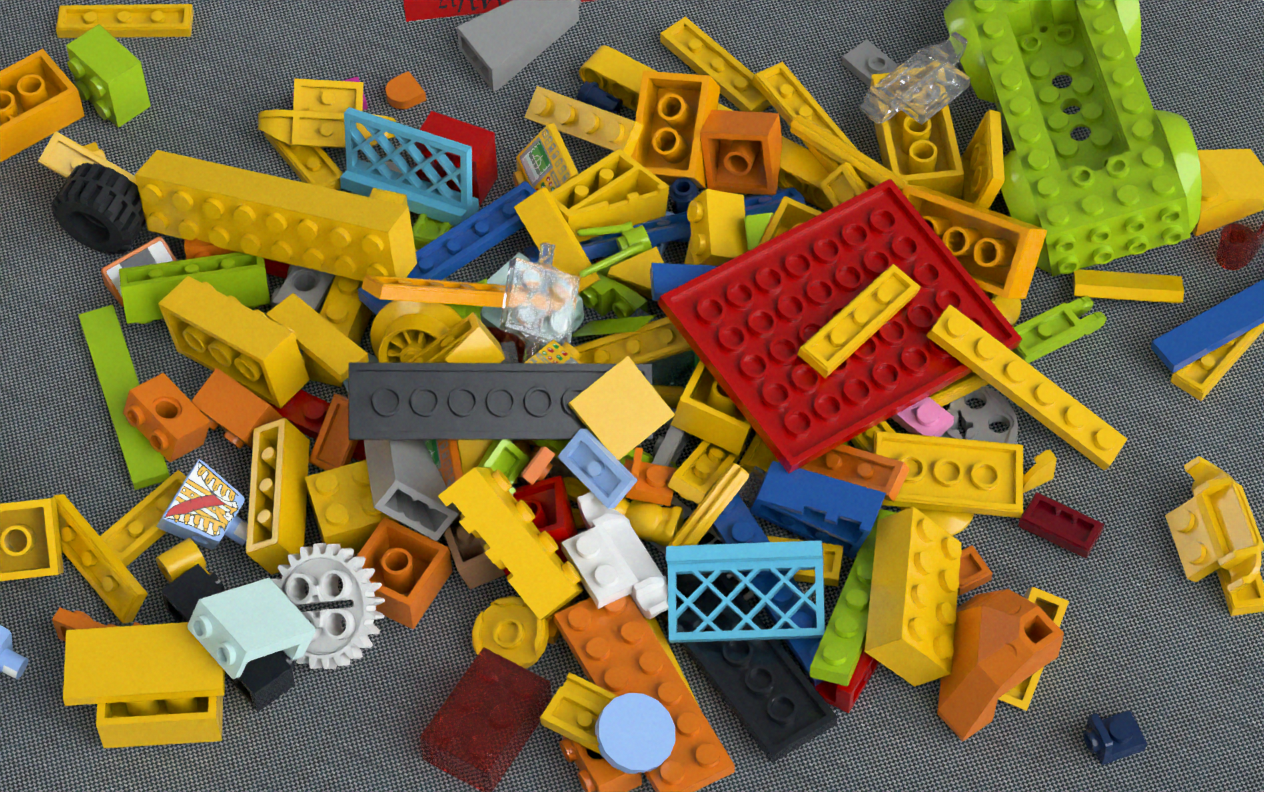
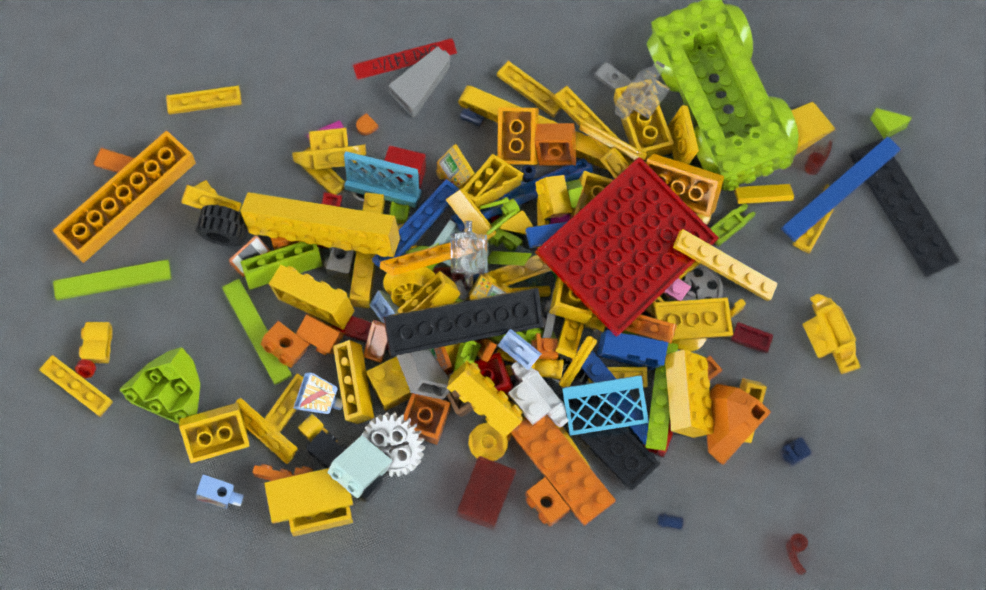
camera: 15 degrees left, 15 degrees up
(108, 76) = (205, 141): lime brick -> none
(318, 336) = (356, 290): yellow tile -> none
(576, 710) = (540, 487): yellow plate -> none
(583, 121) = (468, 135): yellow plate -> none
(621, 408) = (526, 315): yellow tile -> none
(635, 733) = (566, 495): light blue tile -> none
(858, 320) = (638, 245): yellow tile -> none

